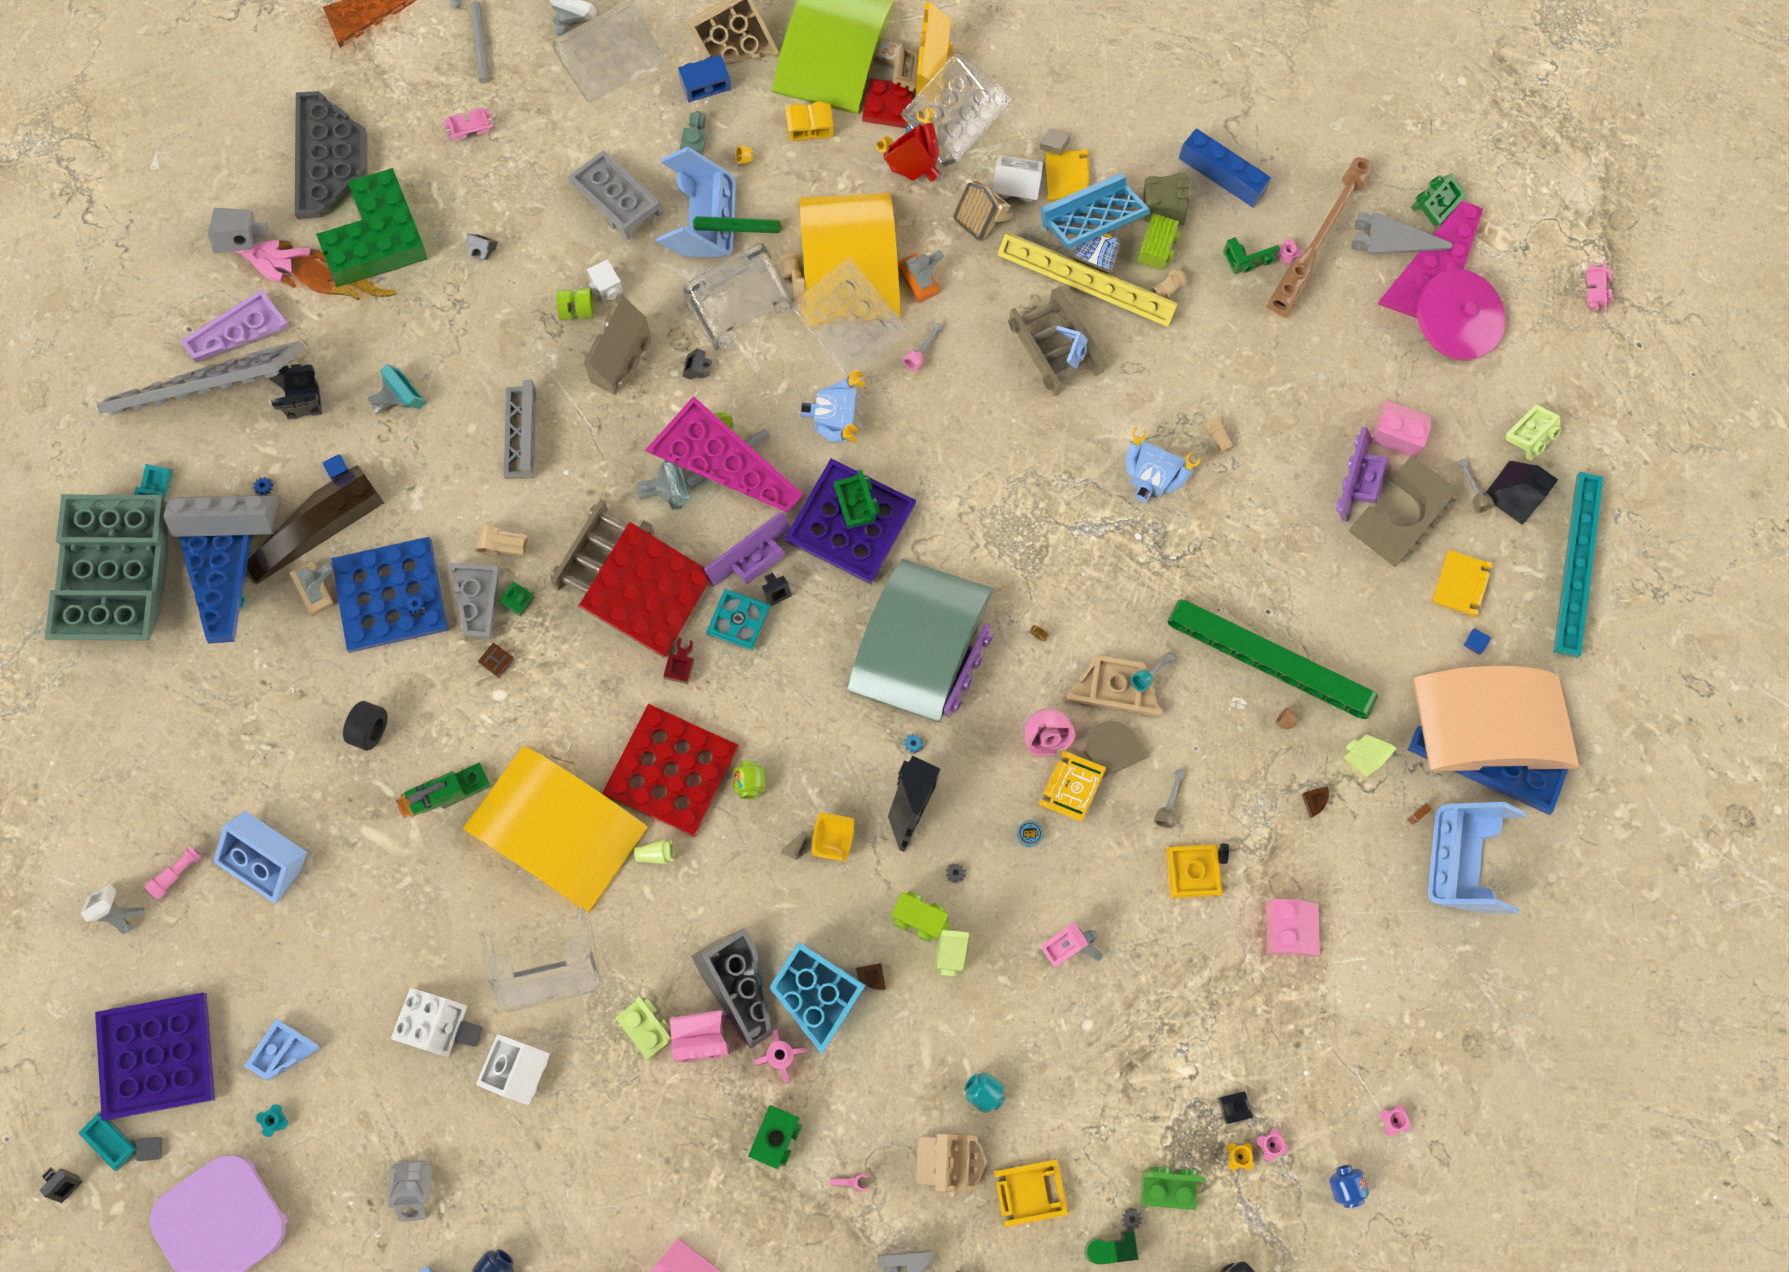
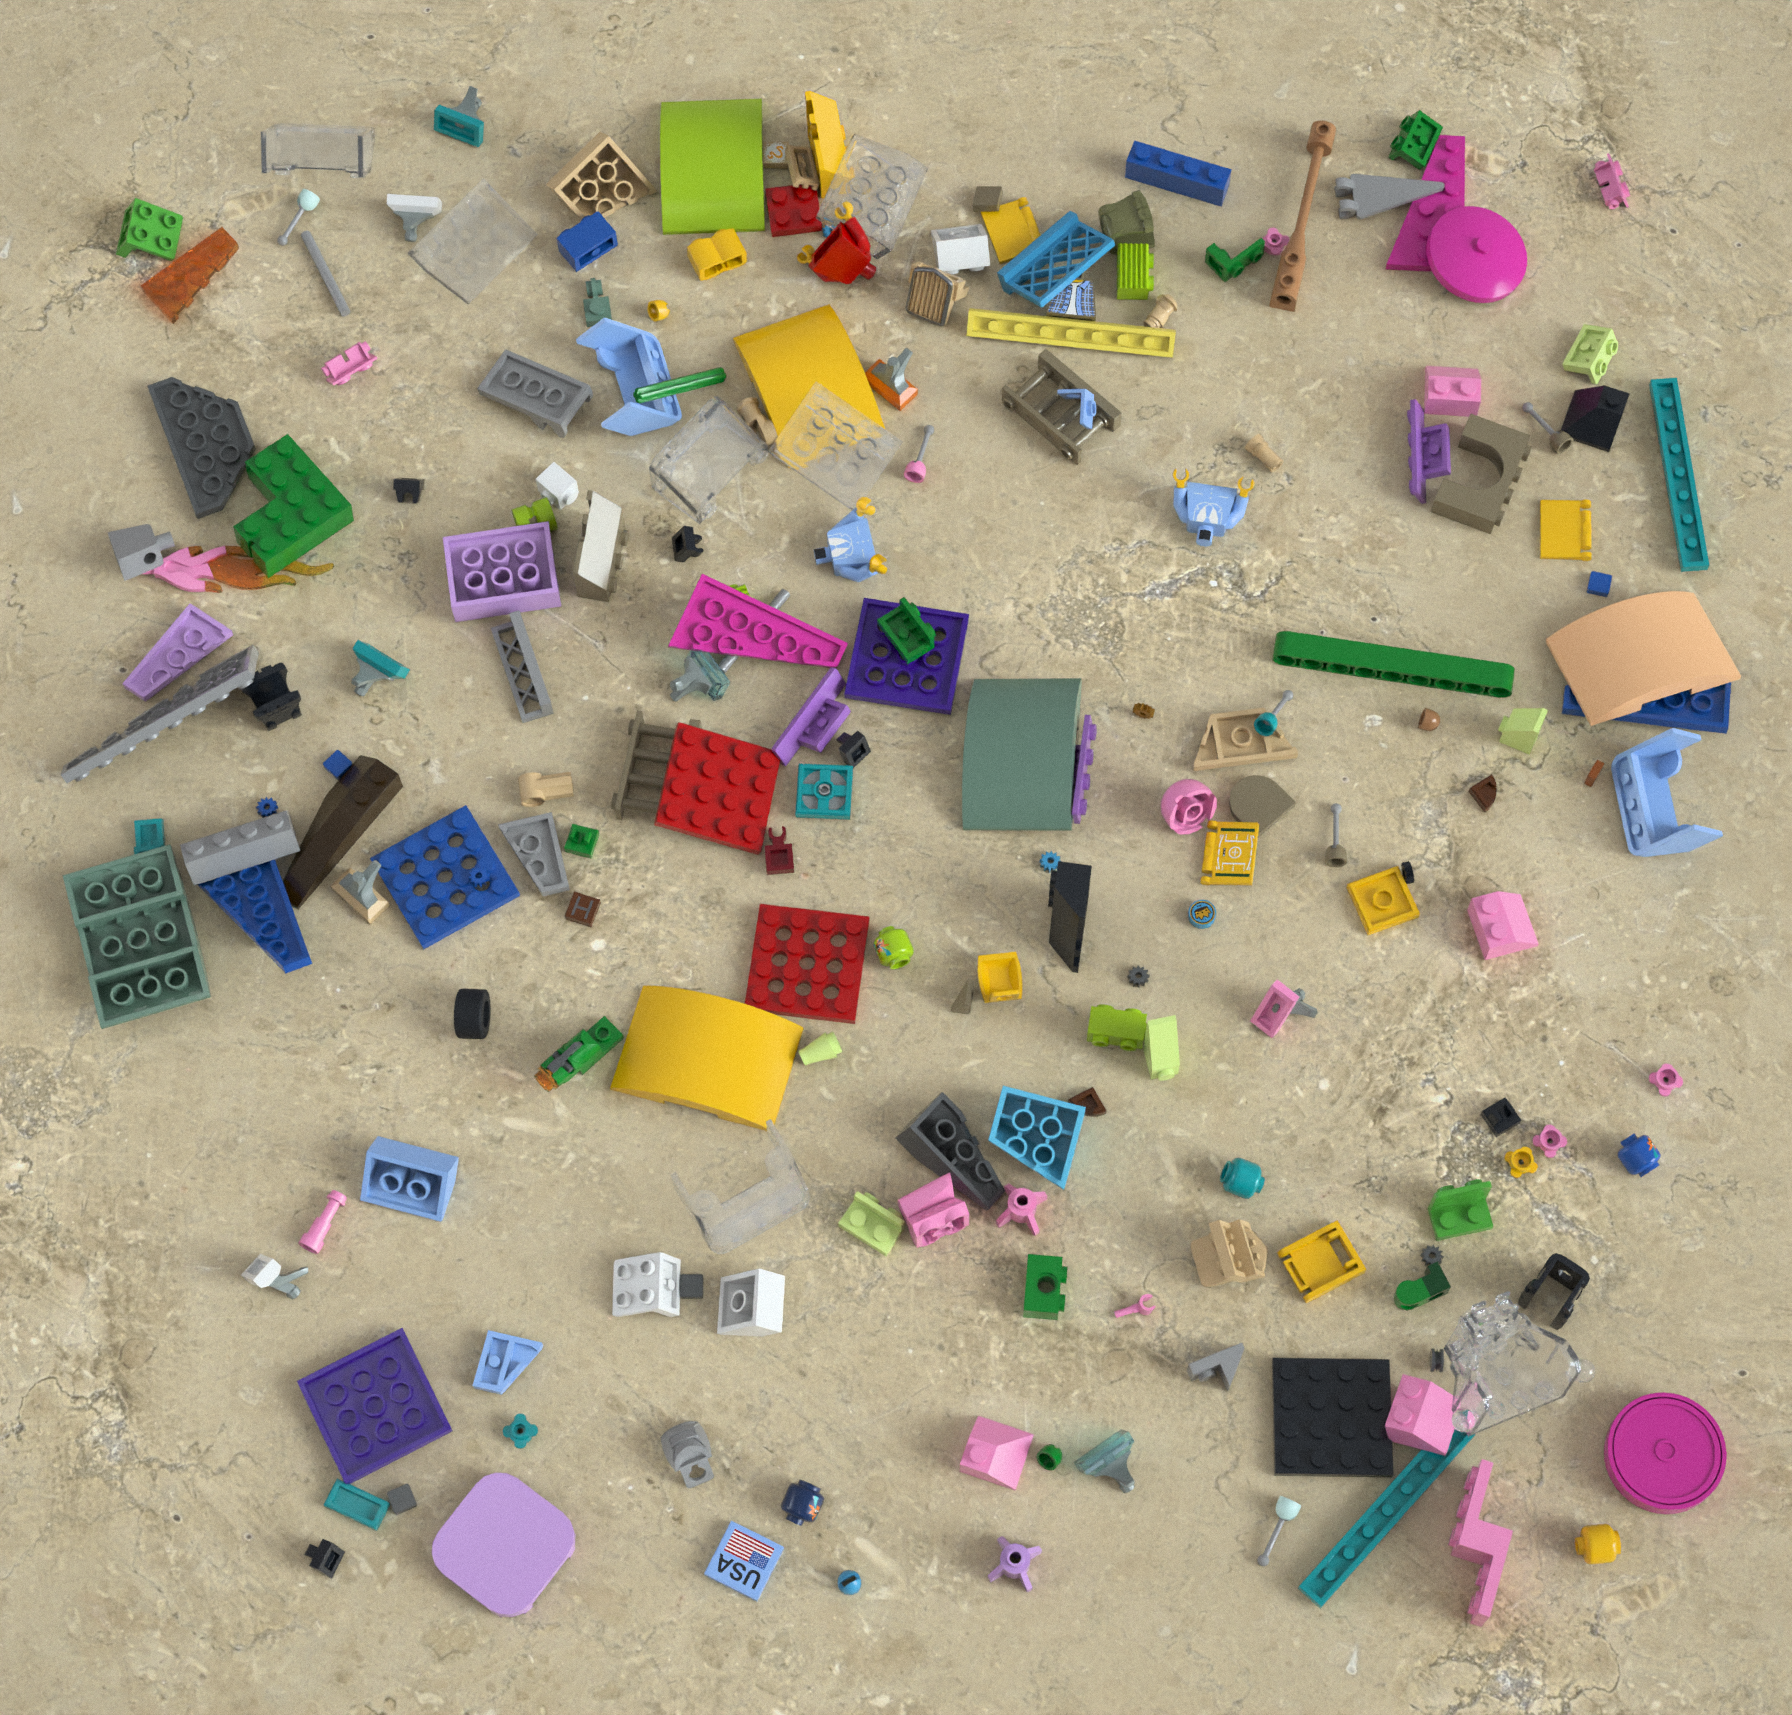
camera: 10 degrees left, 5 degrees down
(529, 341) = (501, 571): none -> lavender slope

